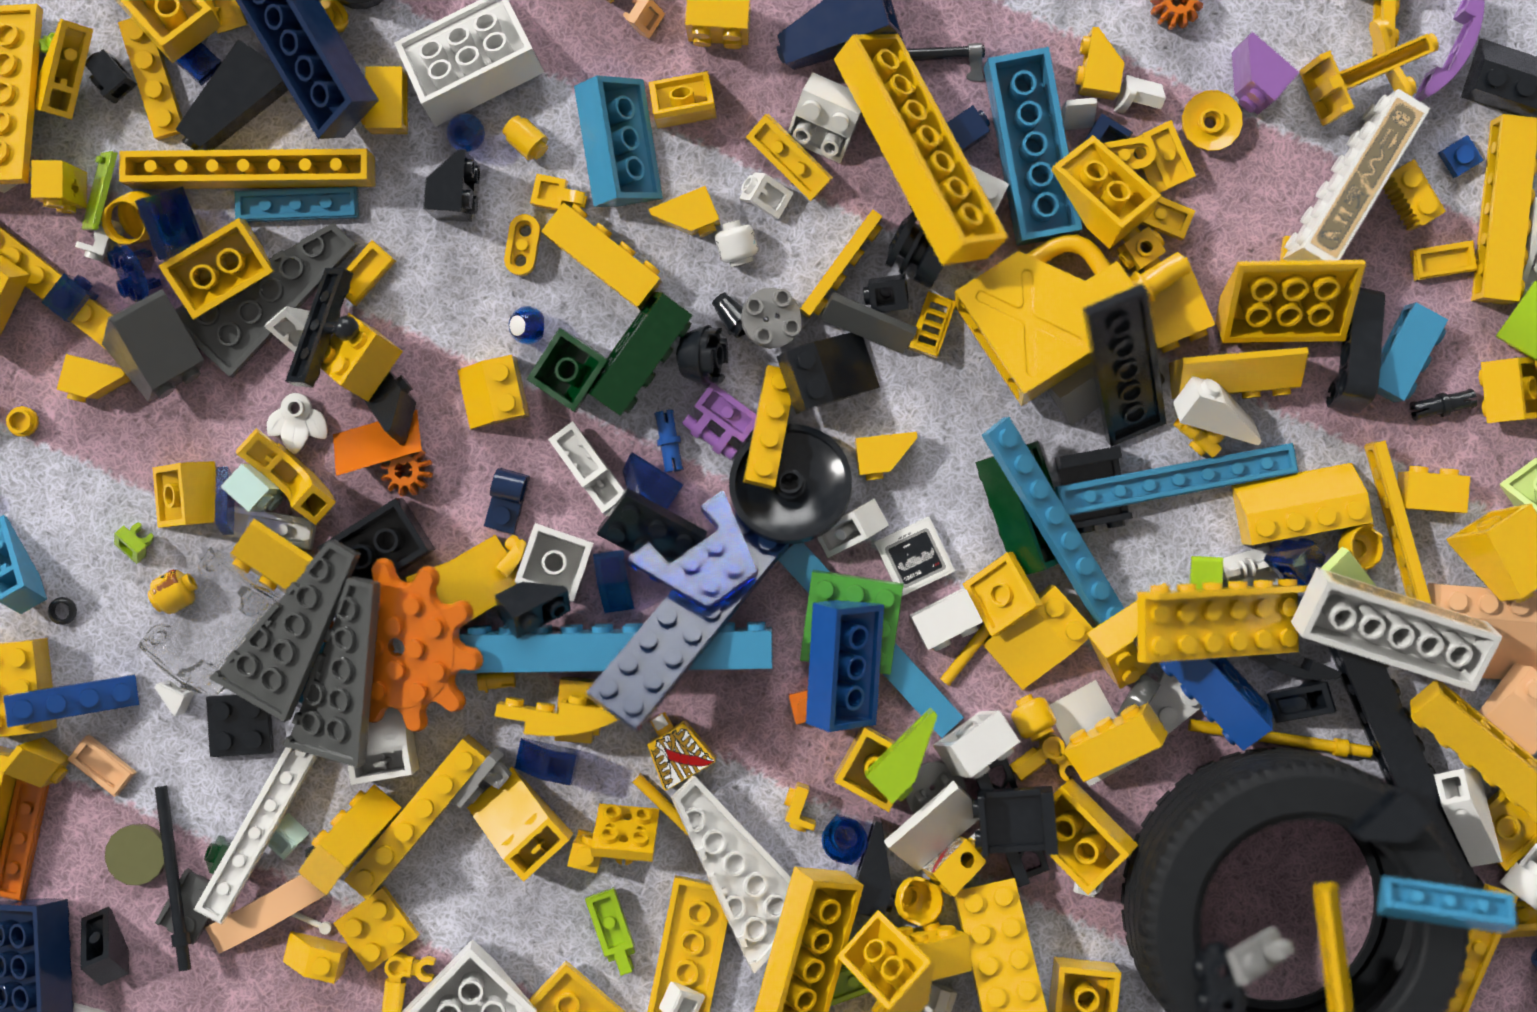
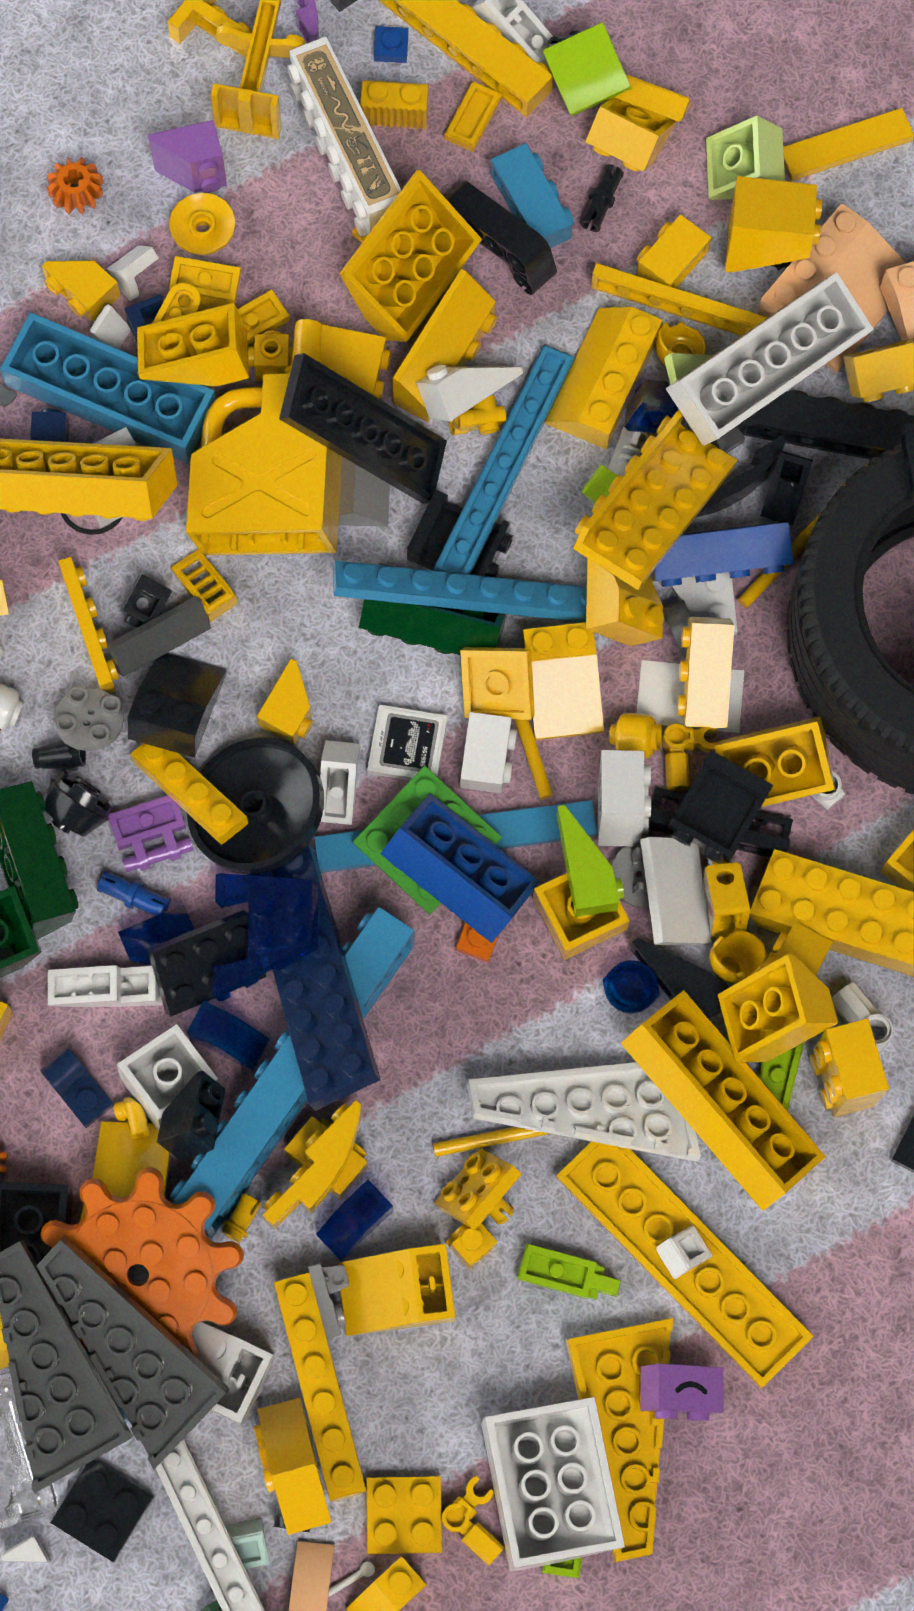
camera: 60 degrees left, 15 degrees down
(677, 751) = (434, 1088): torso -> none
(795, 801) = (562, 1009): yellow bracket -> none
(914, 247) = (124, 542): black wheel -> none

